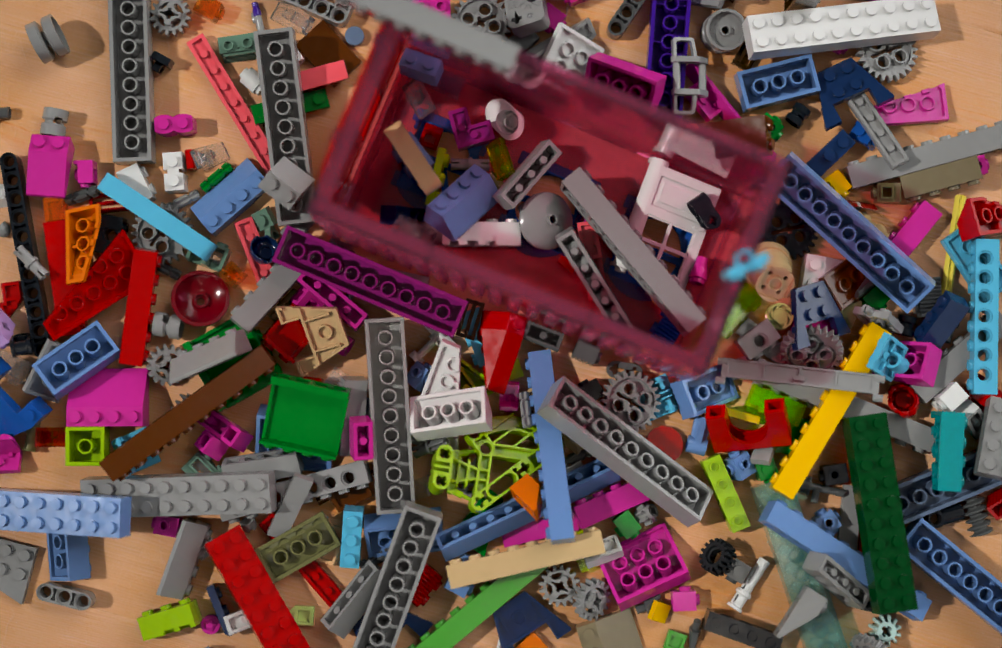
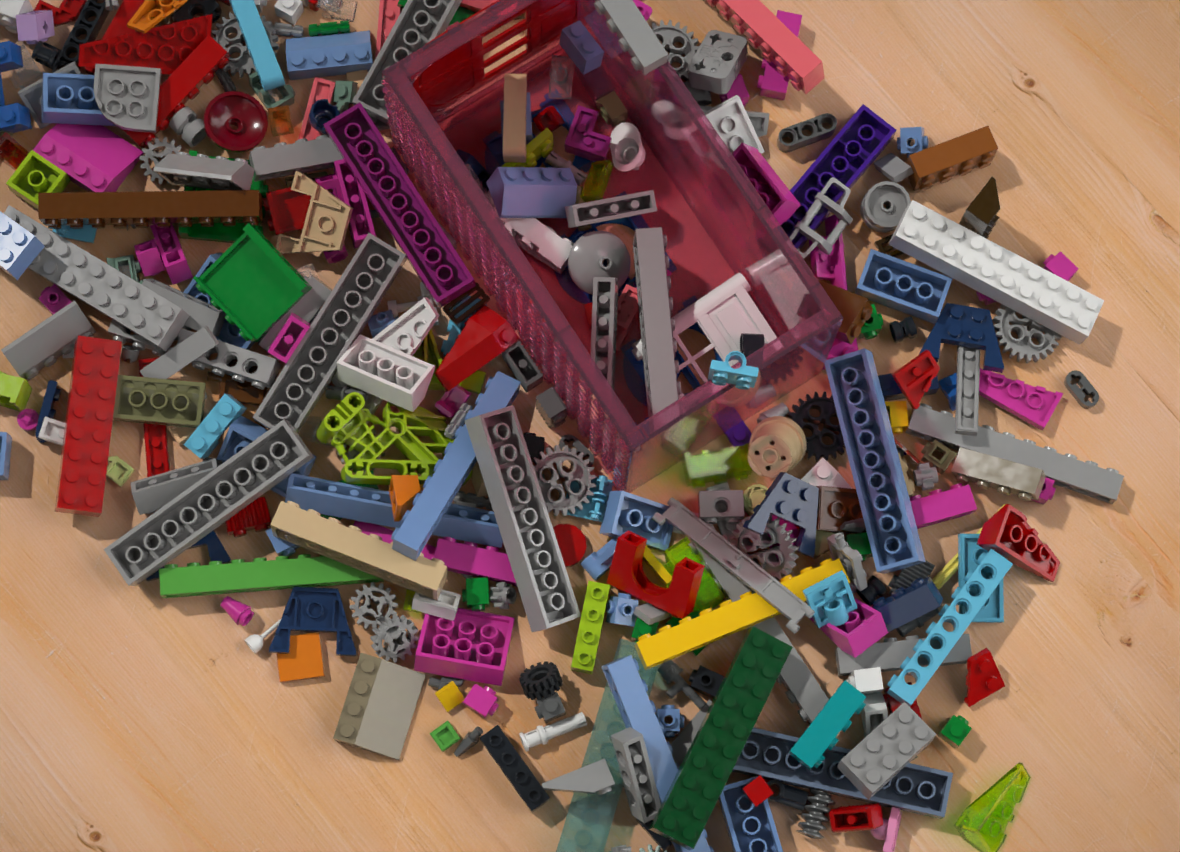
camera: 35 degrees right, 10 degrees down
(108, 337) = (128, 96): none -> light grey plate
(286, 183) = (378, 58): light grey slope -> none
(473, 96) = (612, 109): none -> olive window
(837, 147) = (916, 377): none -> red wing
(888, 214) = (925, 476): none -> light grey gear
(903, 400) = (819, 655): red hair -> none
(928, 530) = (757, 791): none -> red tile
(956, 66) = (1077, 392): none -> dark grey beam

